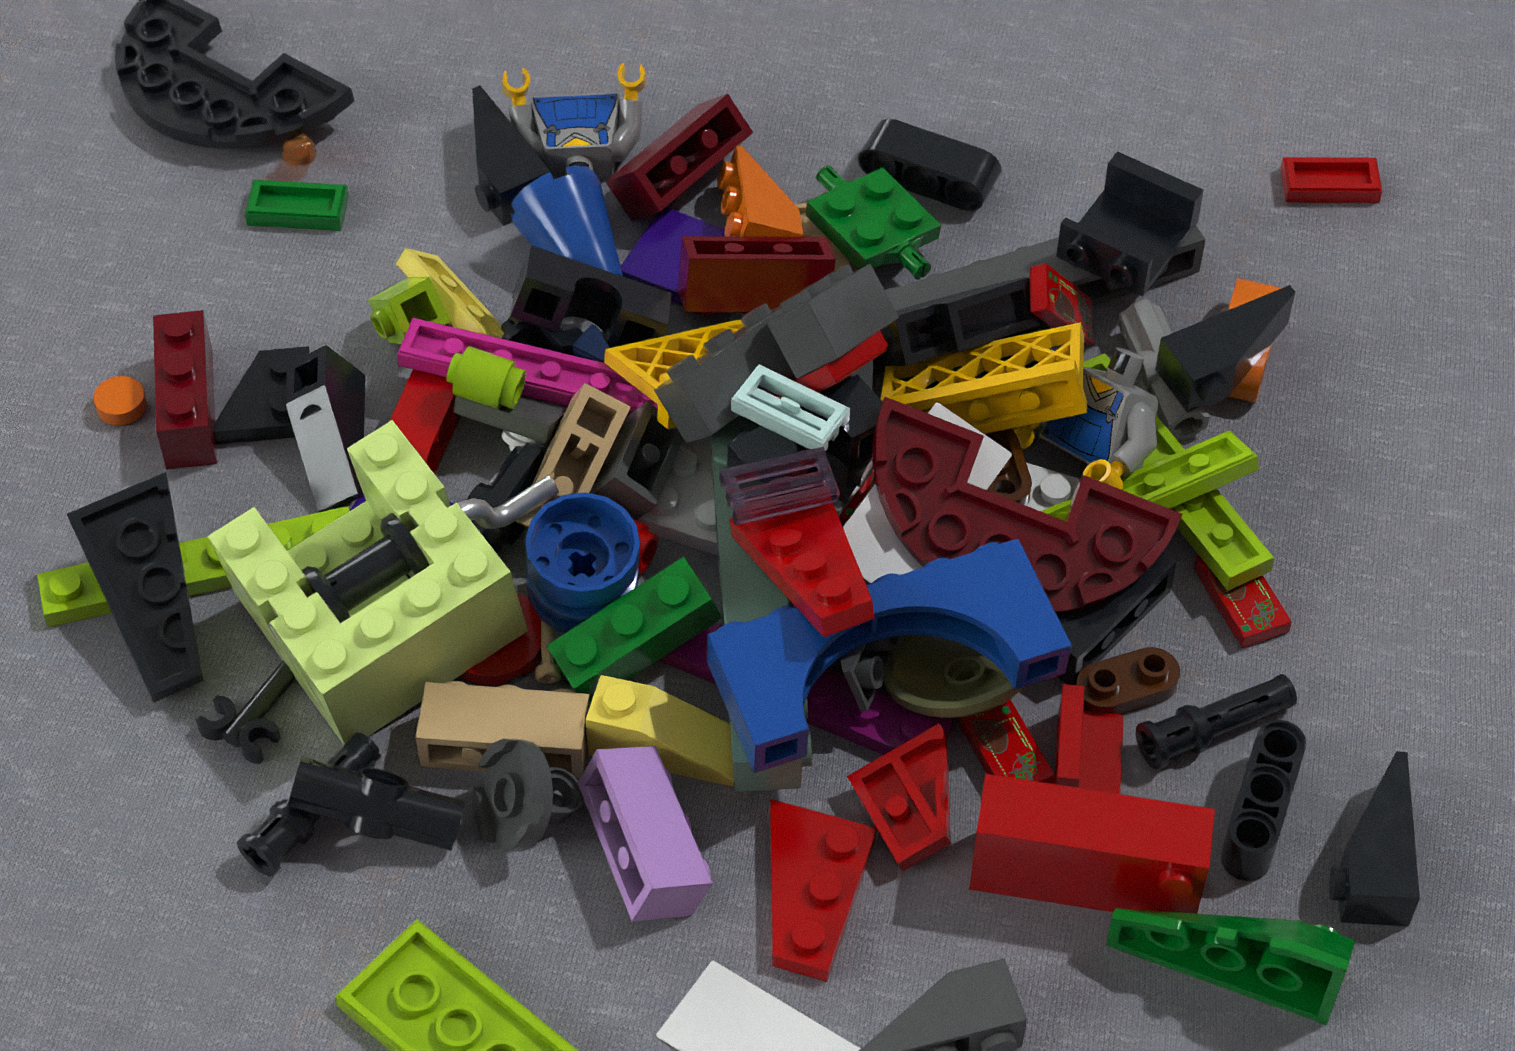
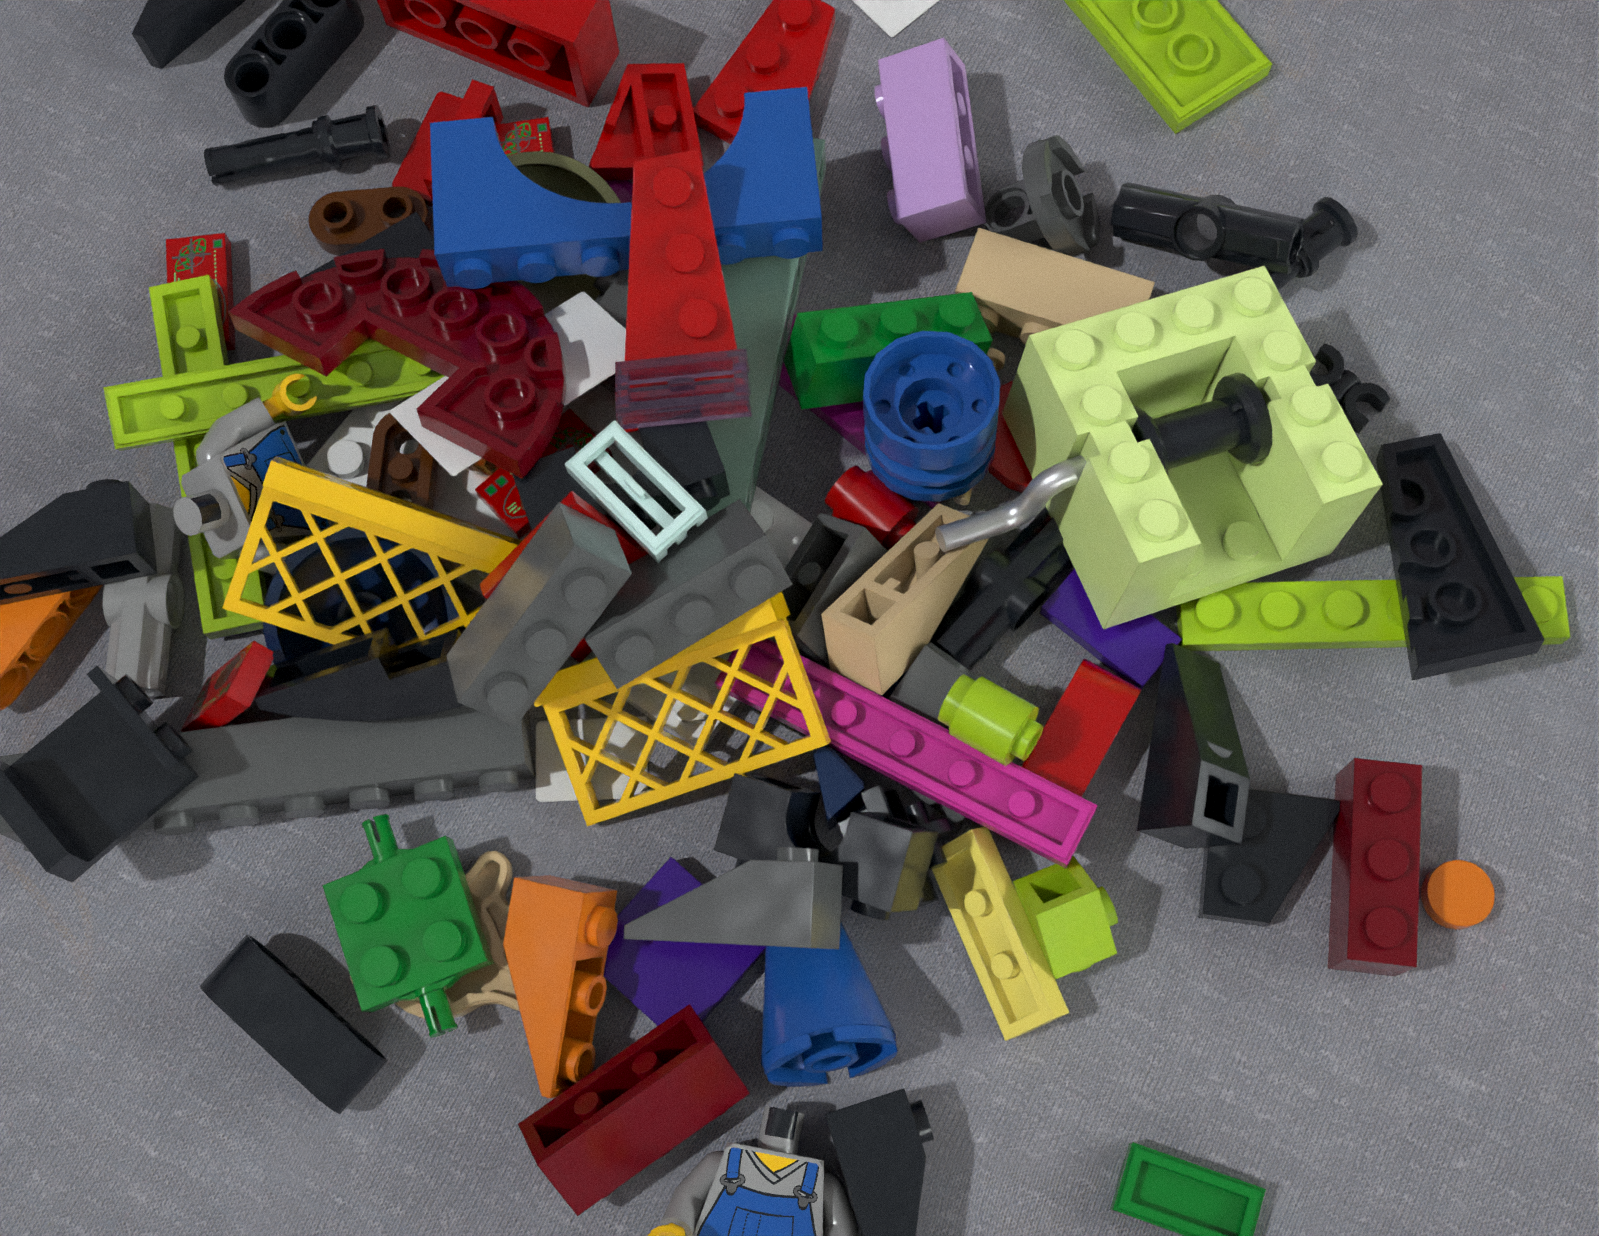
camera: 160 degrees left, 20 degrees up
(627, 237) = (755, 904): none -> dark grey slope
(642, 716) = (886, 255): light yellow slope -> none
(748, 271) = (595, 844): dark red brick -> none

